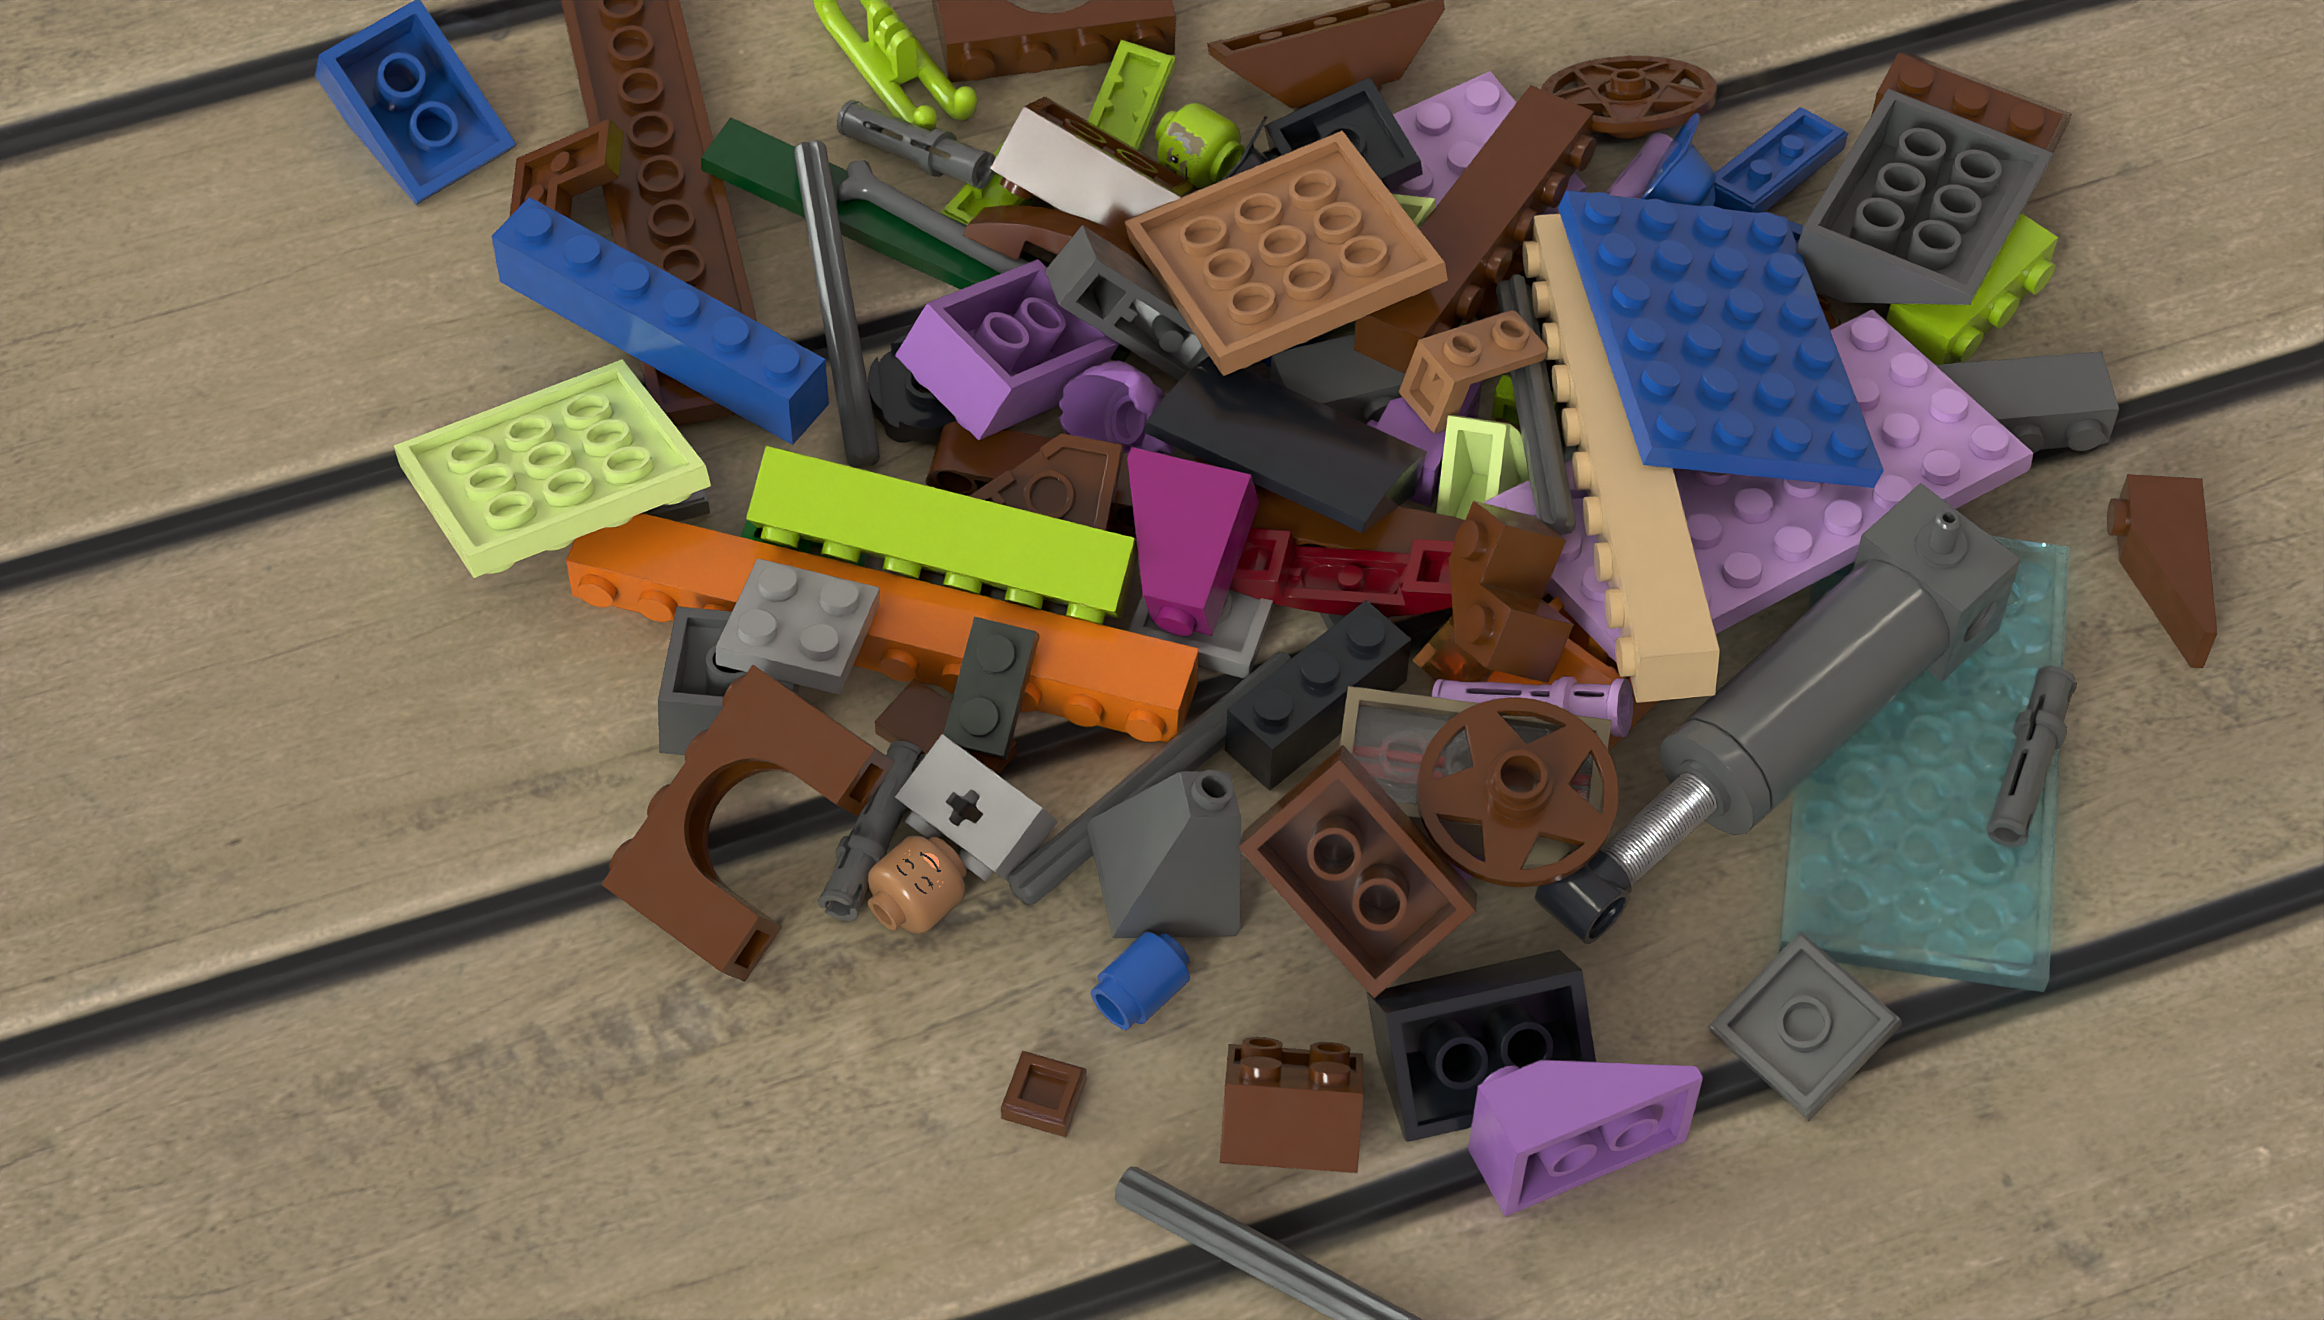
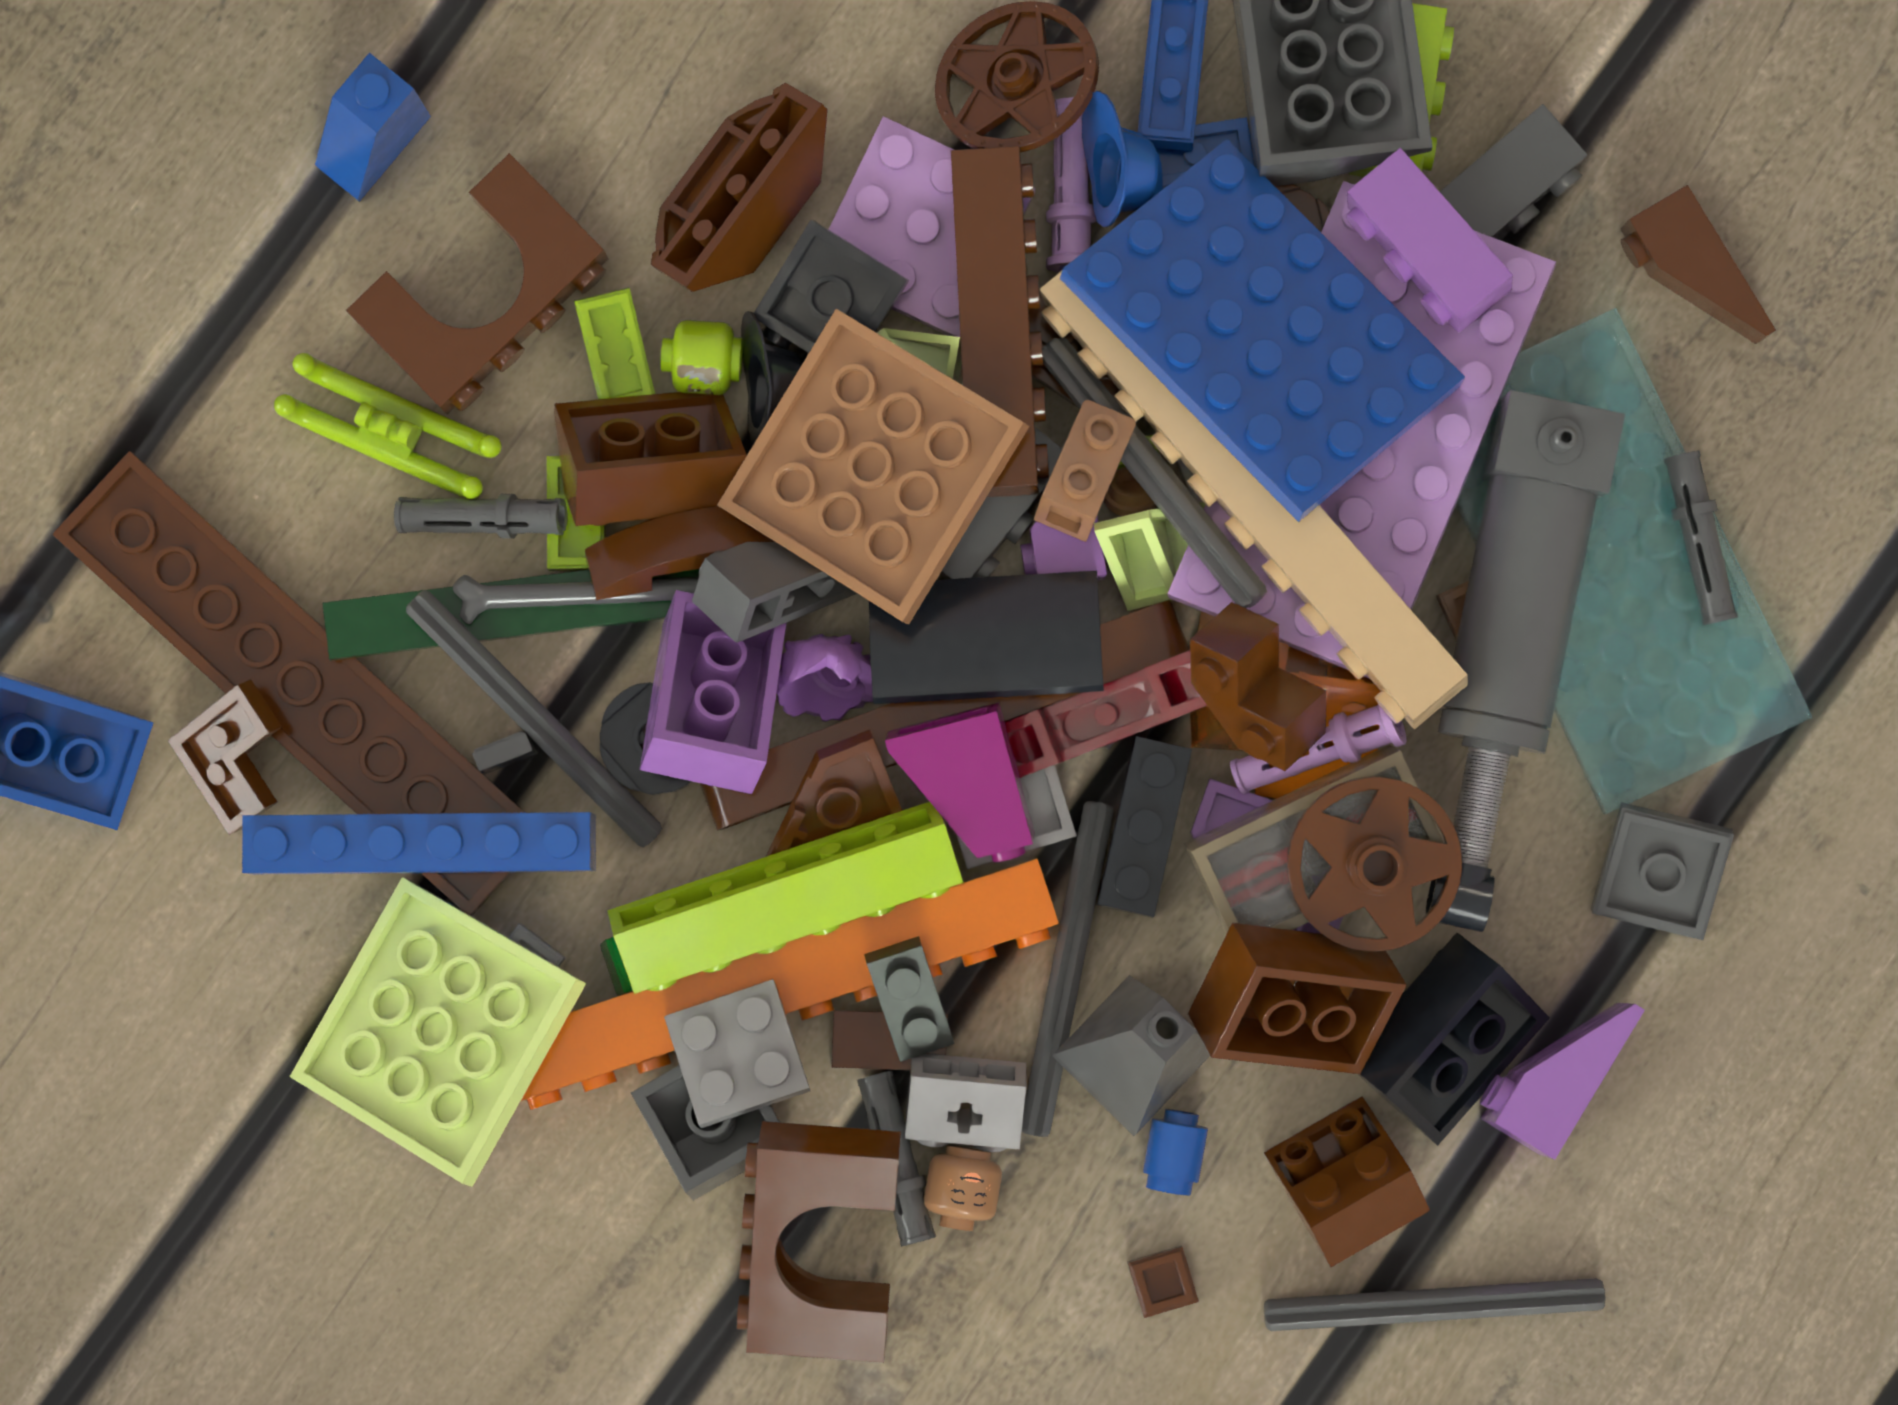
camera: 30 degrees left, 30 degrees up
(792, 317) = (504, 752): none -> dark grey tile
(1920, 361) = (1427, 242): none -> medium lavender brick

